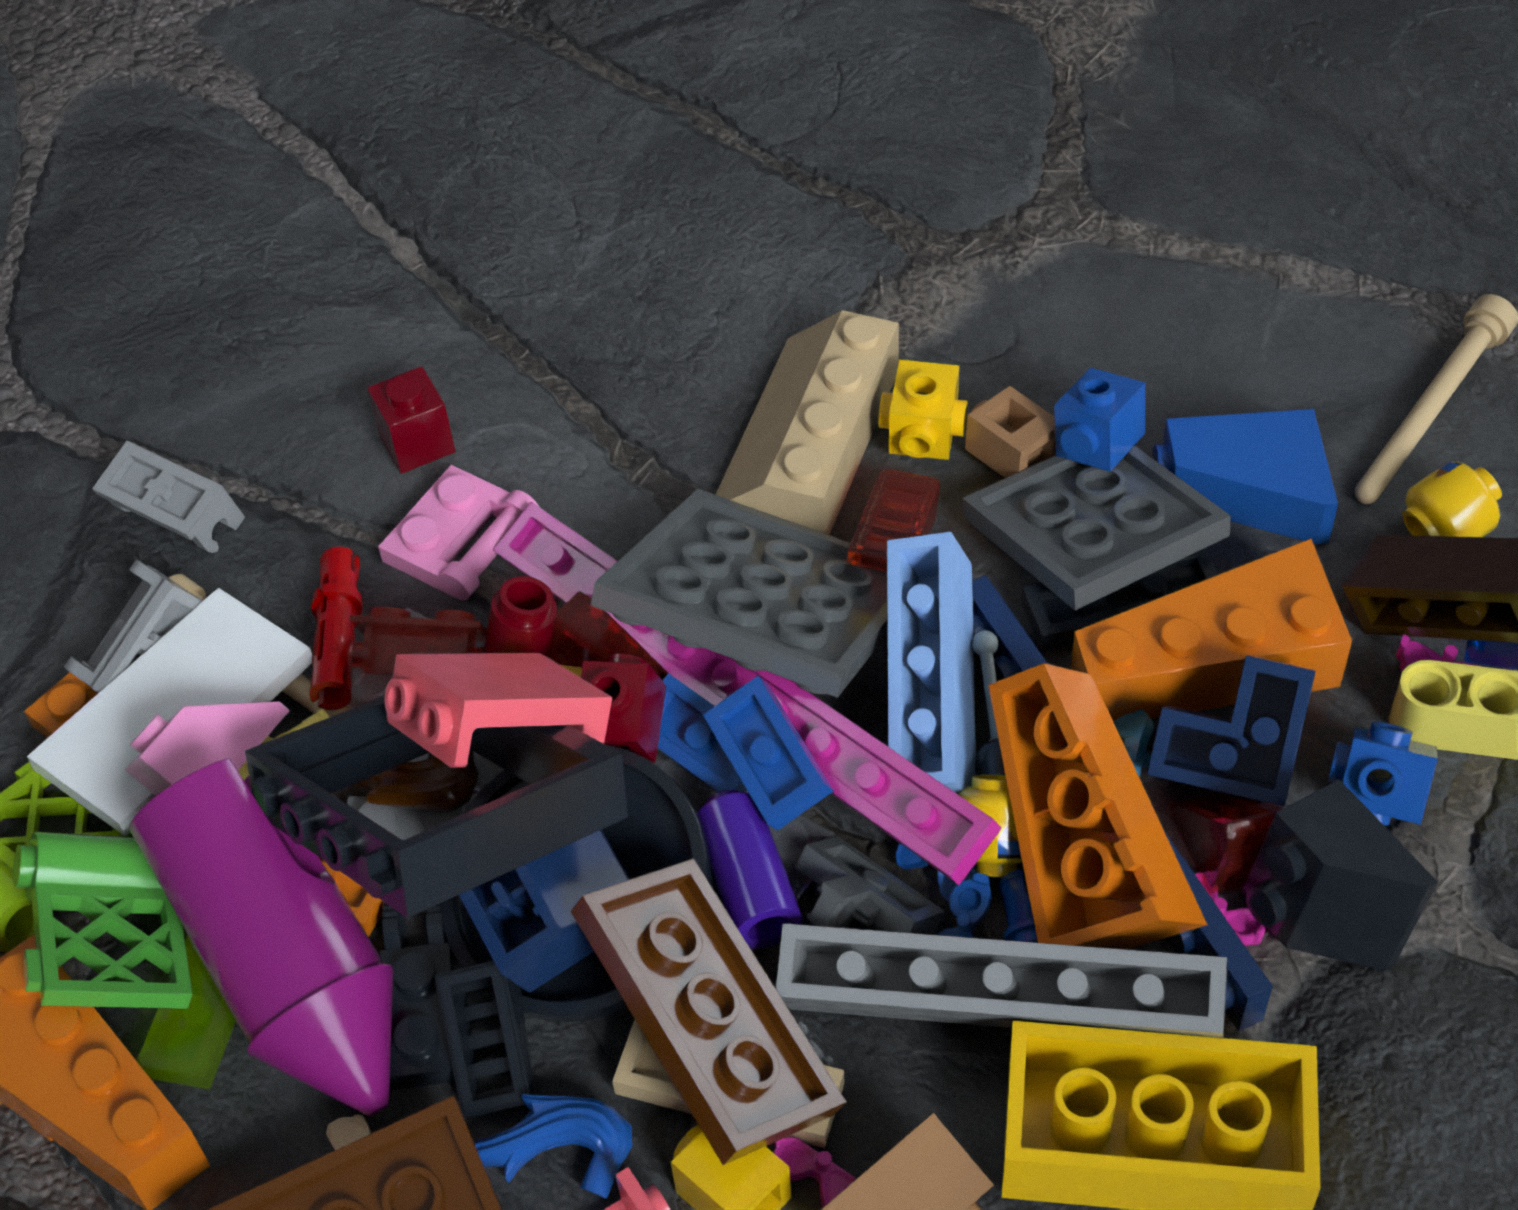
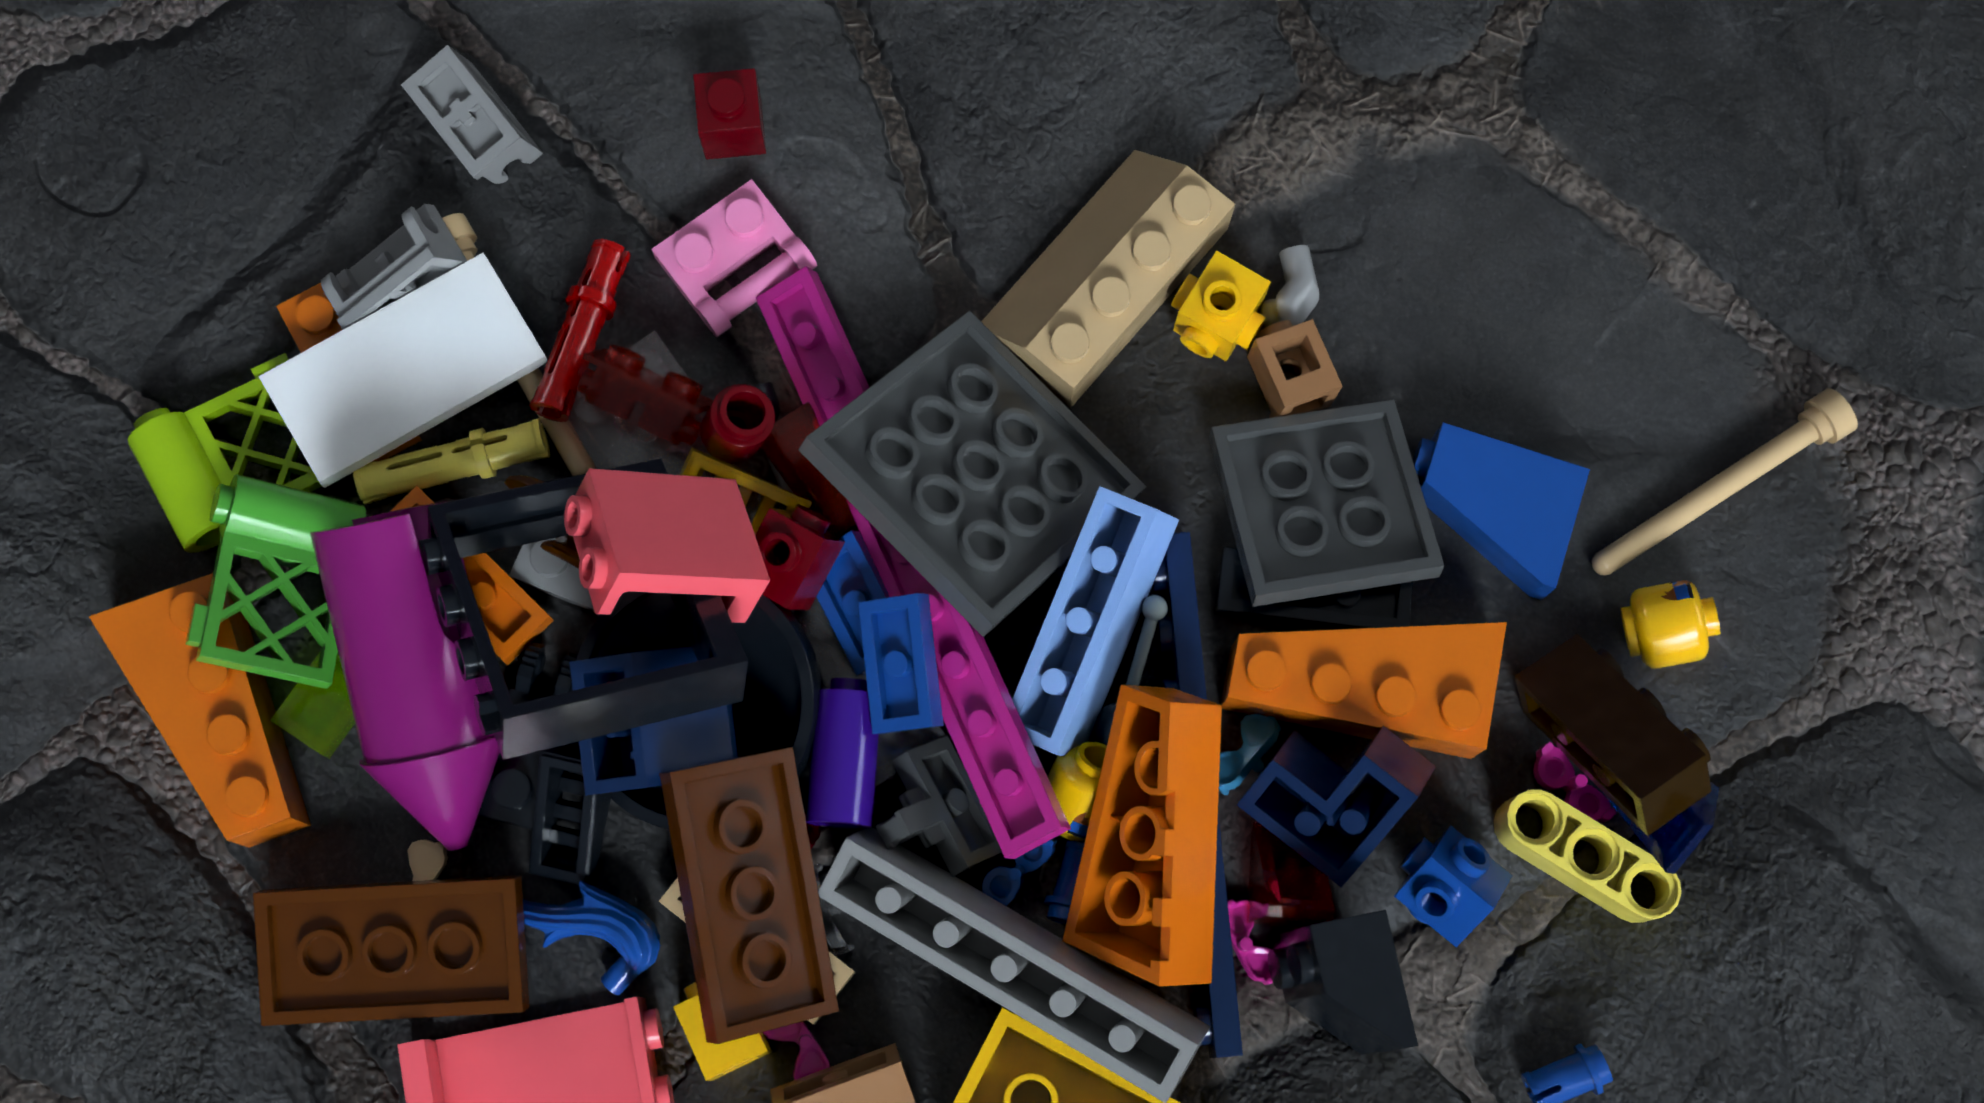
camera: 15 degrees right, 25 degrees up
(199, 738) = (410, 444): bright pink slope -> none
(897, 509) = (1157, 398): clear red slope -> none
(979, 377) = (1300, 292): none -> light grey arm
(1100, 419) = (1377, 399): blue brick -> none

